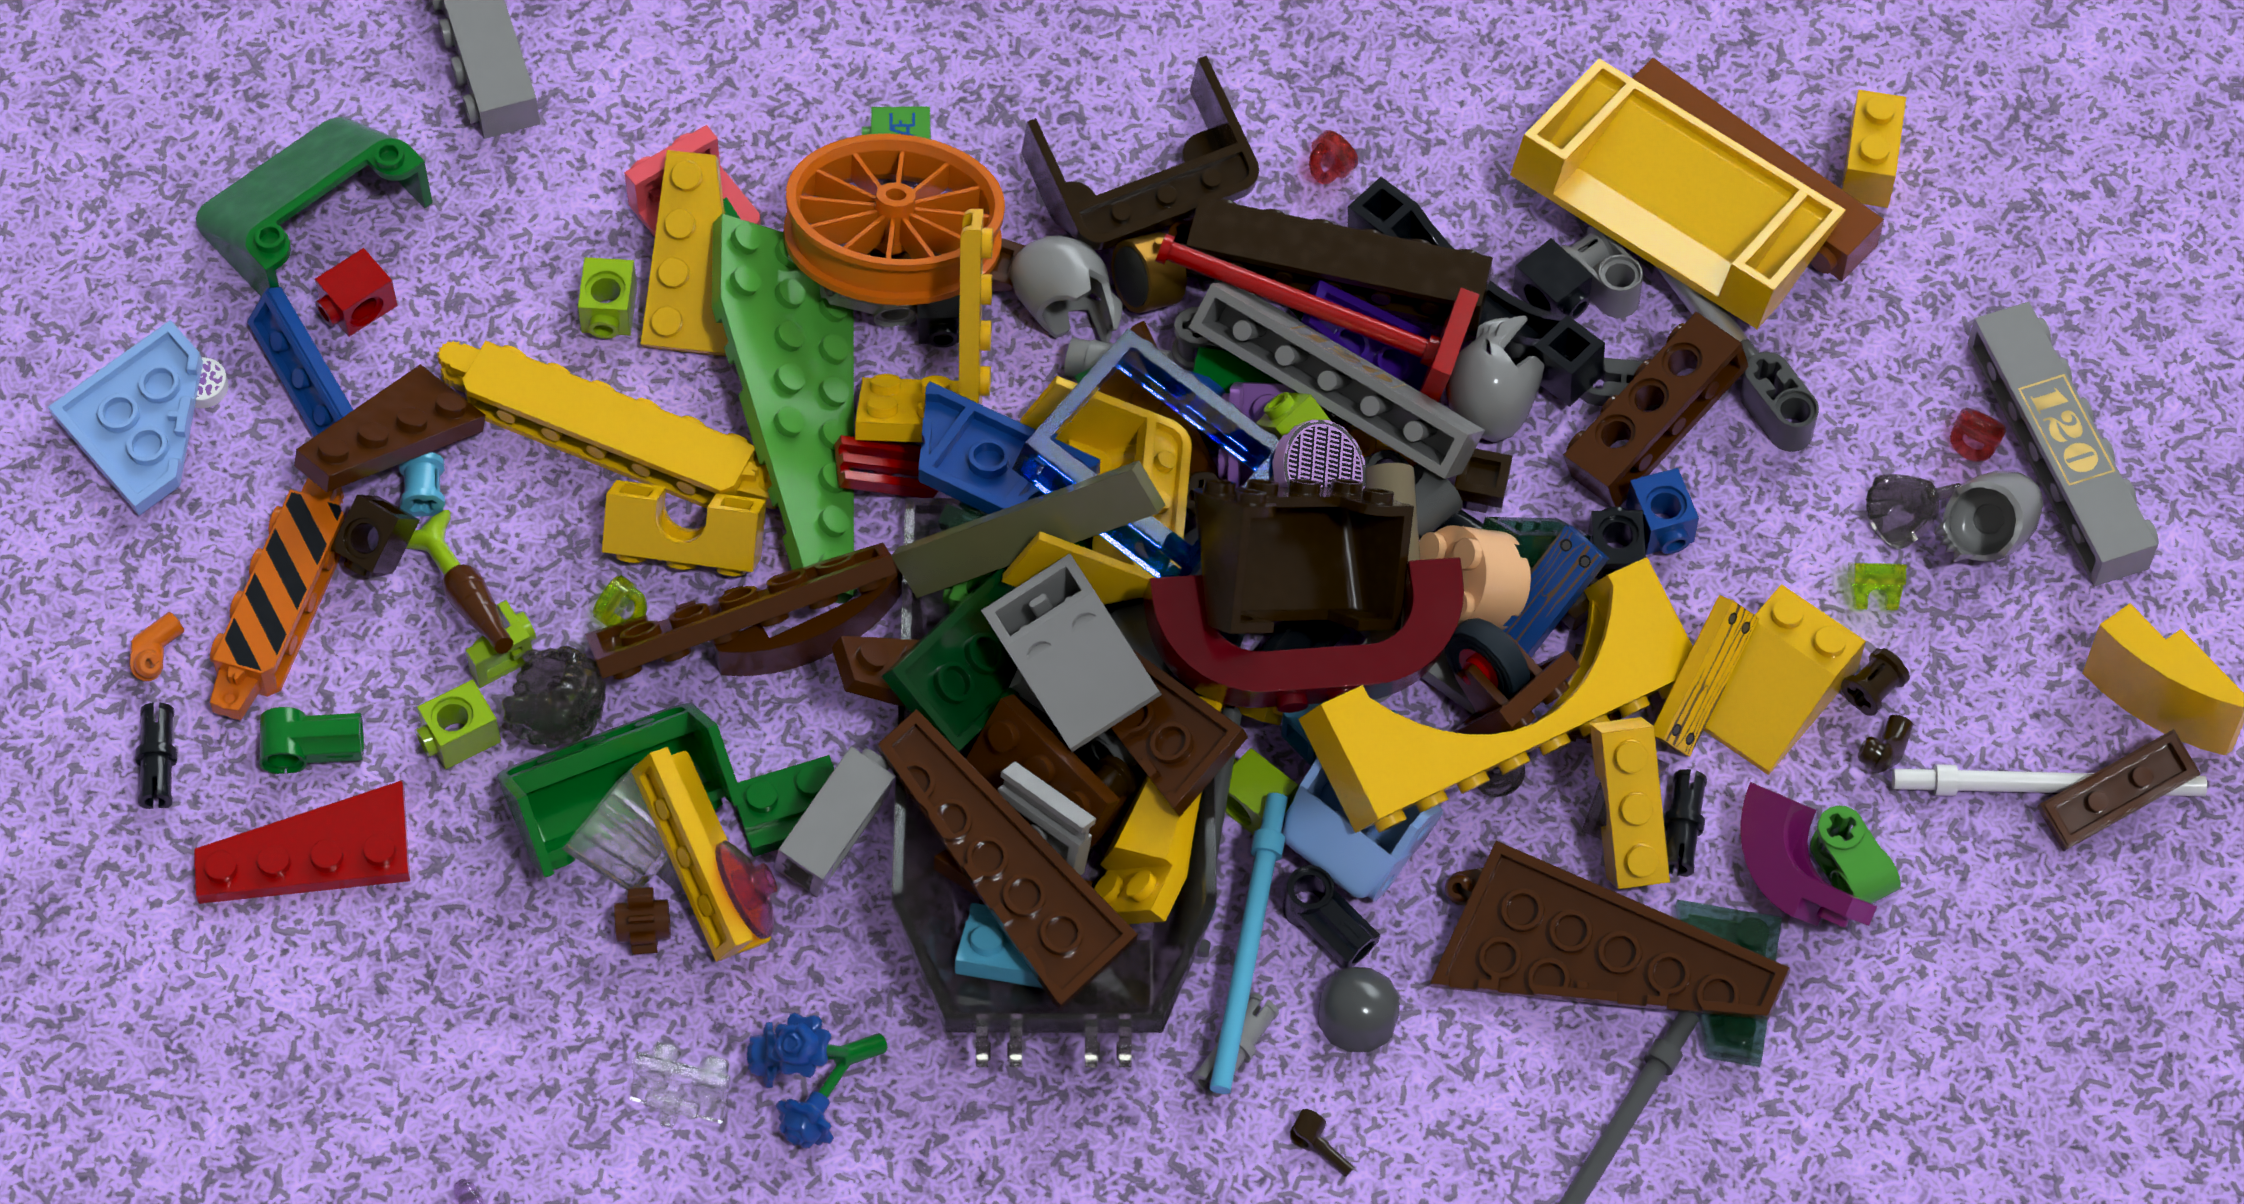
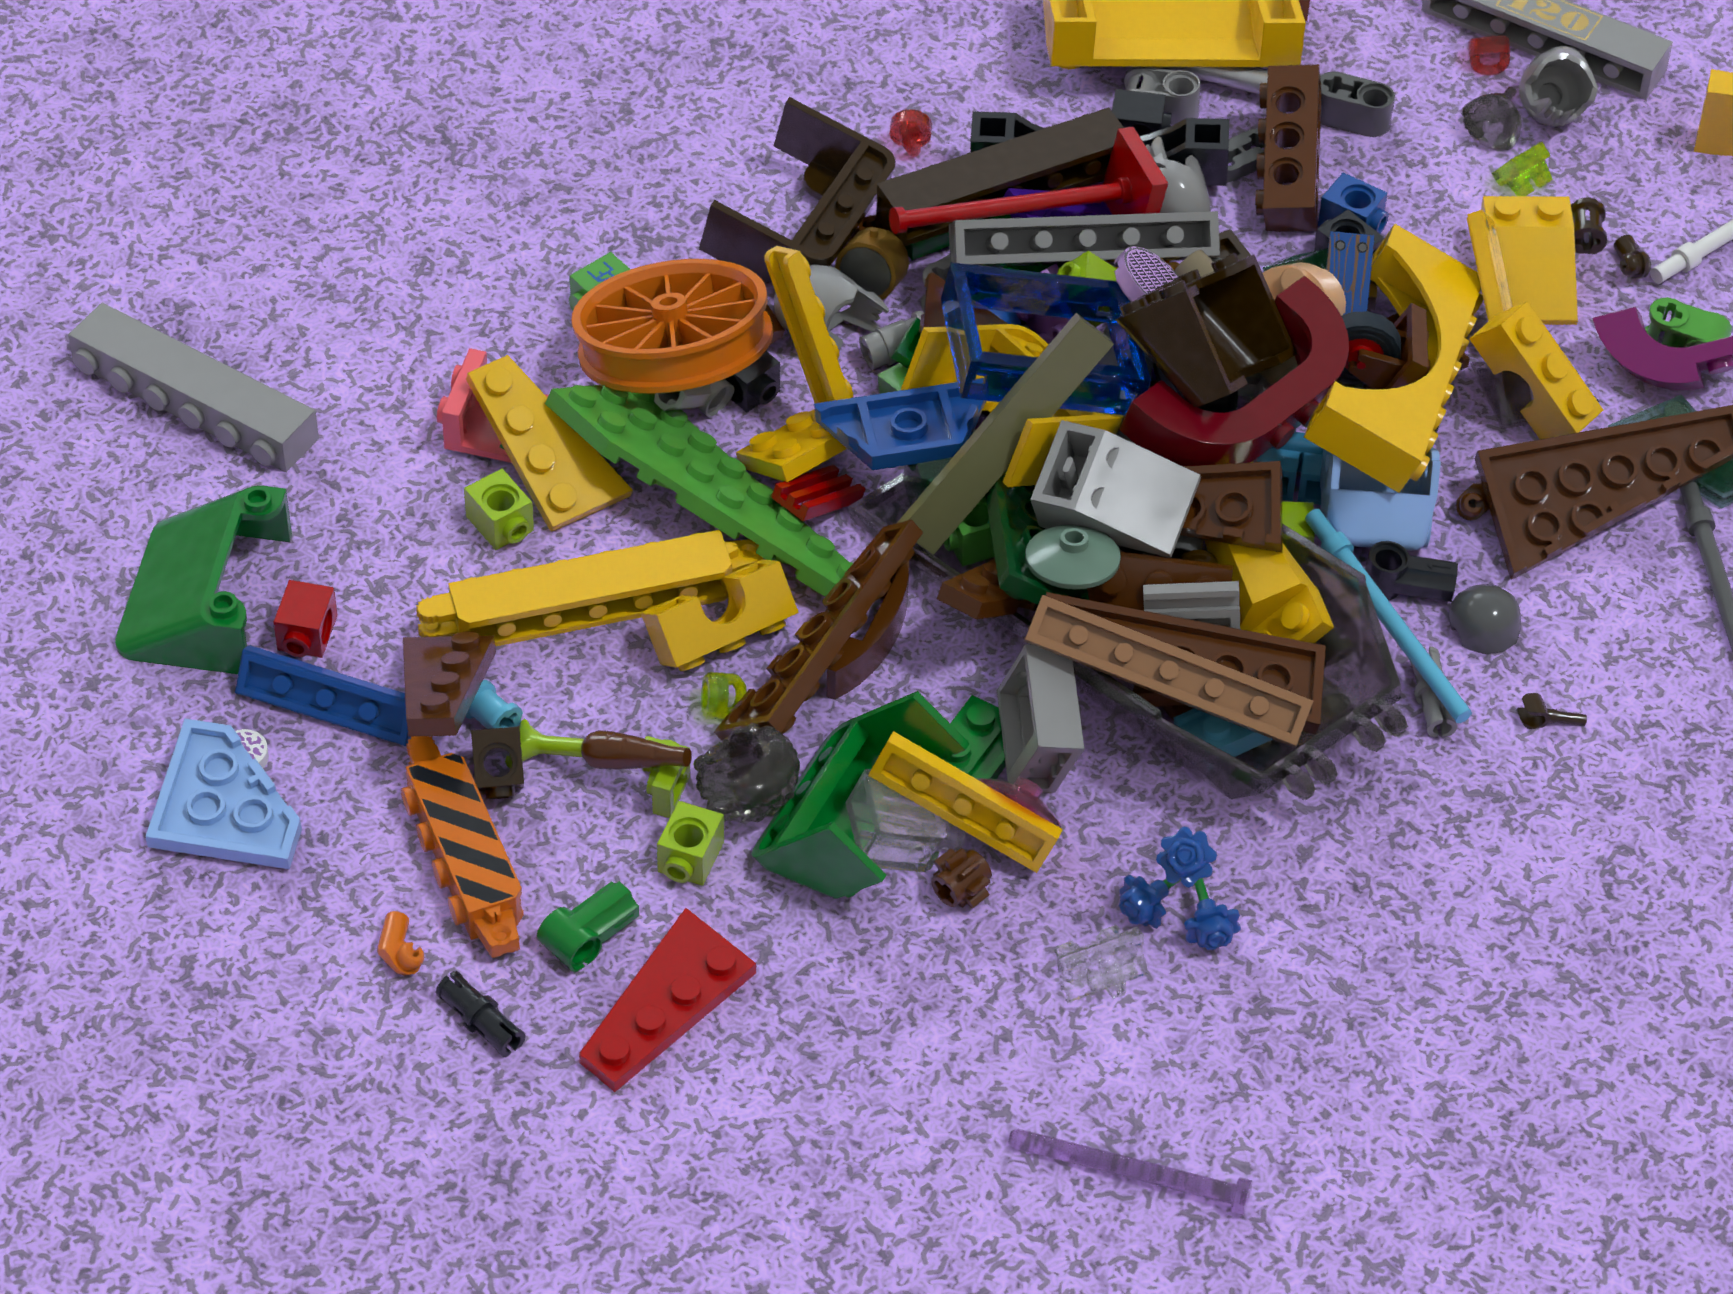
camera: 40 degrees left, 10 degrees down
(951, 861) = (1168, 671): none -> medium nougat plate
(975, 706) = (1072, 557): none -> sand green dish

